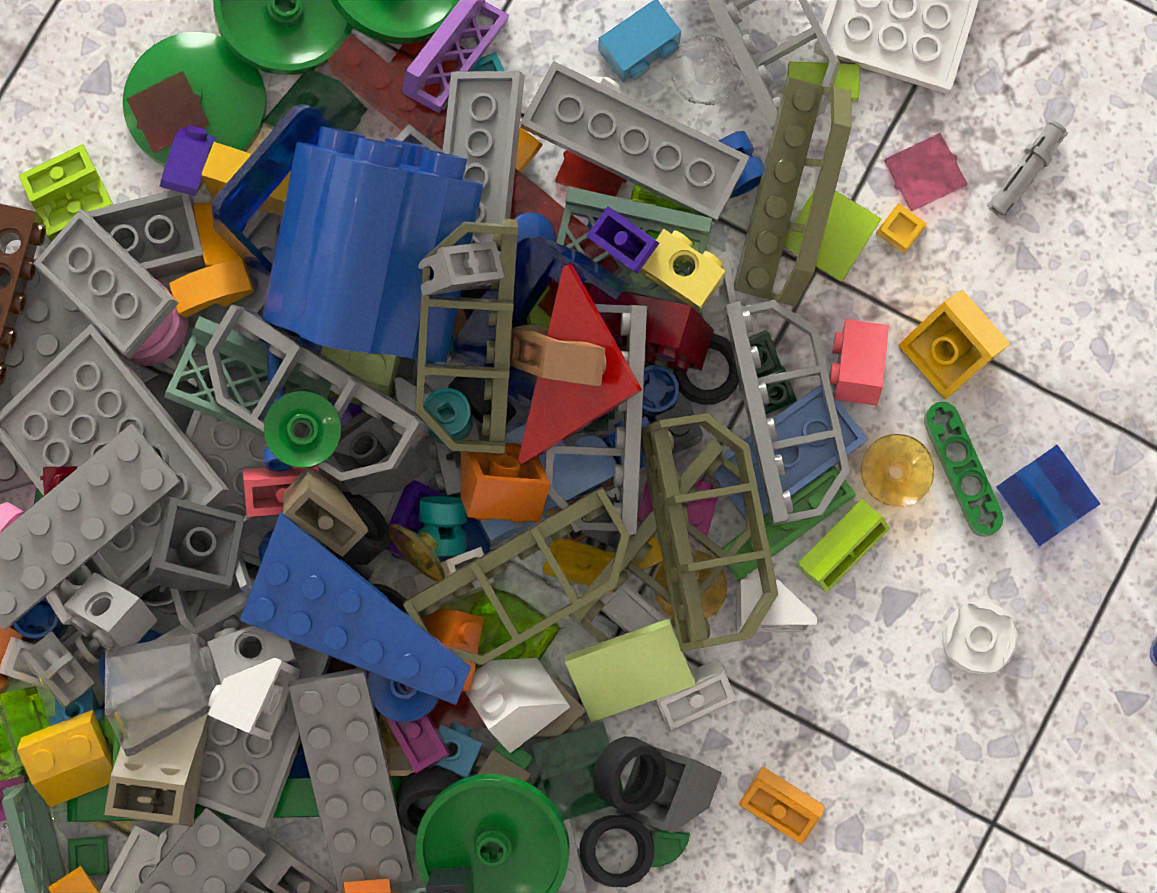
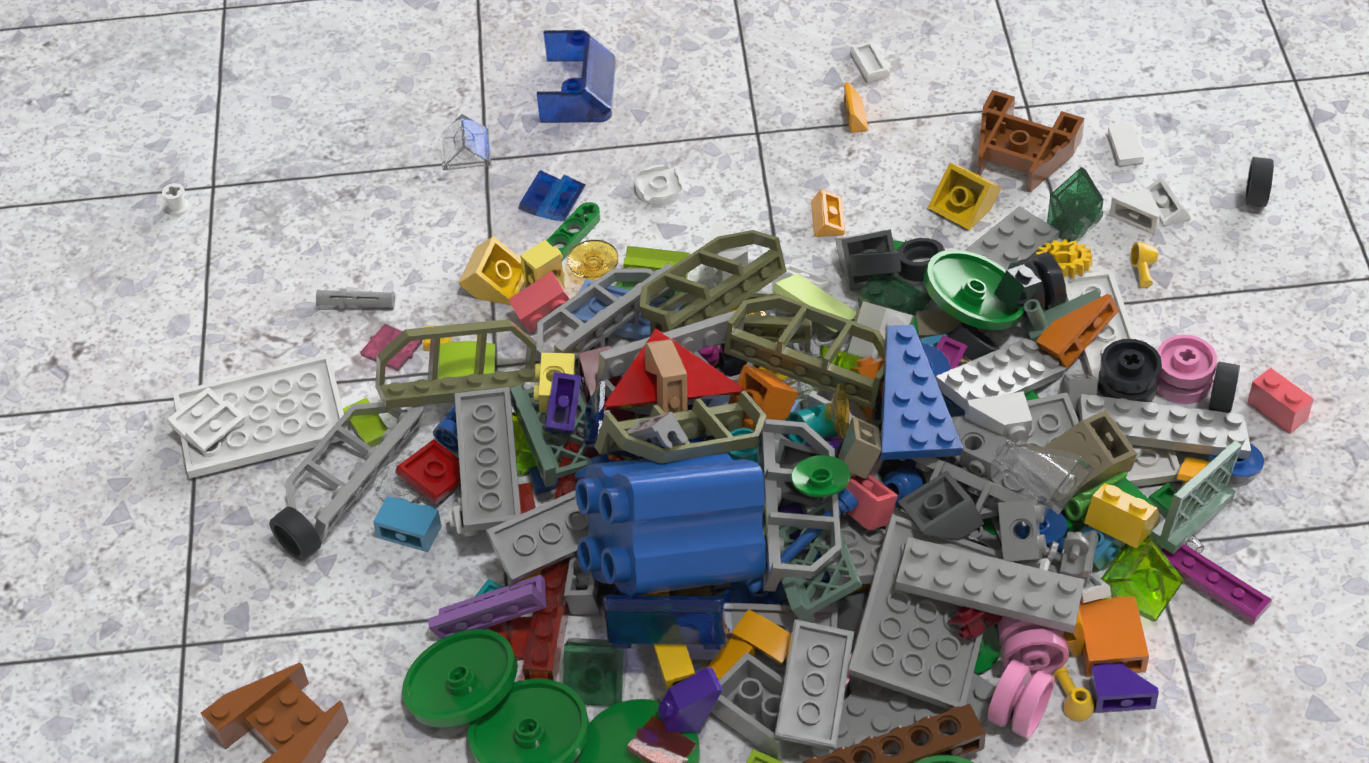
camera: 120 degrees left, 30 degrees down
(695, 100) = (431, 471): none -> red tile
(905, 390) = (540, 261): none -> light yellow brick

